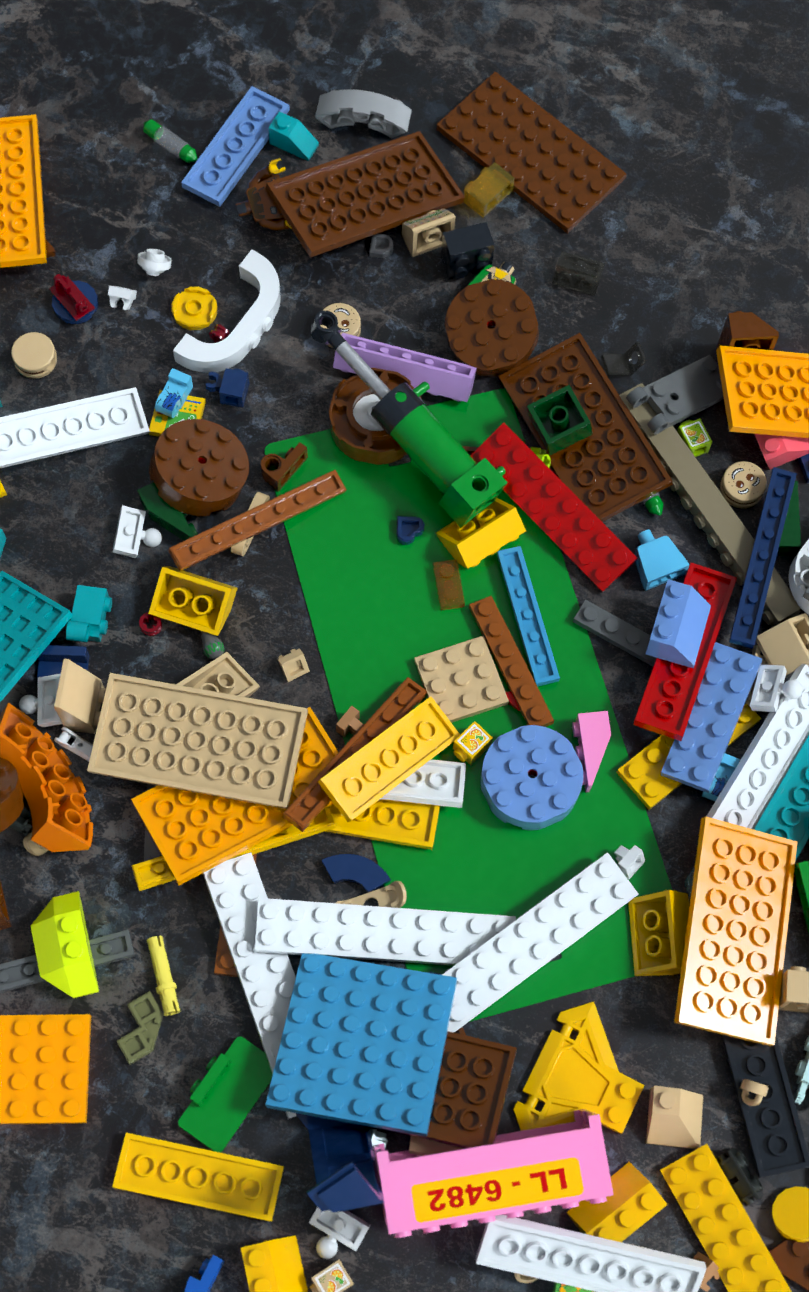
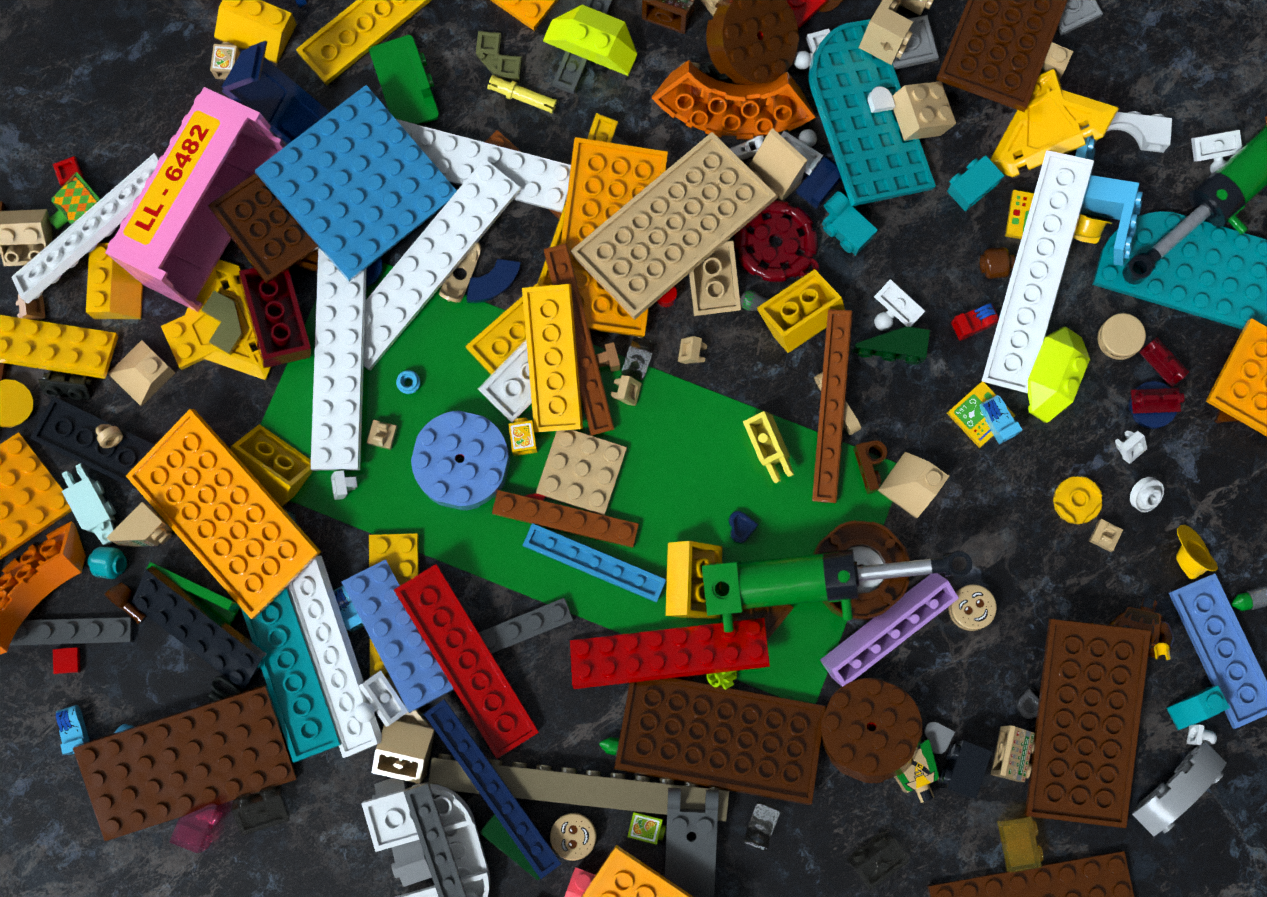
camera: 130 degrees right, 10 degrees up
(32, 312) = (1164, 362): none -> dark red hinge
(37, 482) = (996, 263): none -> reddish brown head
(100, 376) = (1056, 374): none -> neon yellow wedge
(101, 467) = (974, 321): none -> red leg
(148, 651) = (779, 255): none -> dark red plate
(178, 203) = (1193, 554): none -> yellow piece
(199, 467) = (937, 395): reddish brown piece -> none
(207, 273) = (1106, 535): none -> tan tile
(219, 334) = (1033, 500): dark red bush -> none
(231, 388) = (976, 475): dark blue brick -> none
(247, 334) = (1024, 535): white arch -> none
(273, 425) = (913, 483): none -> tan slope
(313, 125) = (1198, 735): none -> white piece
(327, 548) = (768, 444): none -> light yellow hinge
(331, 700) = (638, 358): none -> clear smoke bracket
(366, 688) = (628, 390): none -> tan tile
(448, 584) = (668, 522): clear orange plate -> none
(453, 287) = (938, 736): none -> light grey tile
(504, 869) = (403, 376): none -> medium azure plate
(539, 1026) = (275, 318): none -> dark red brick
(559, 419) = (738, 714): dark green brick -> none
(560, 863) = (382, 434): none -> tan tile
(577, 1064) = (229, 331): none -> olive tile
(593, 737) = (454, 533): bright pink slope -> none
(658, 560) = (561, 706): medium azure torso -> none
(679, 625) = (486, 667): medium blue slope -> none

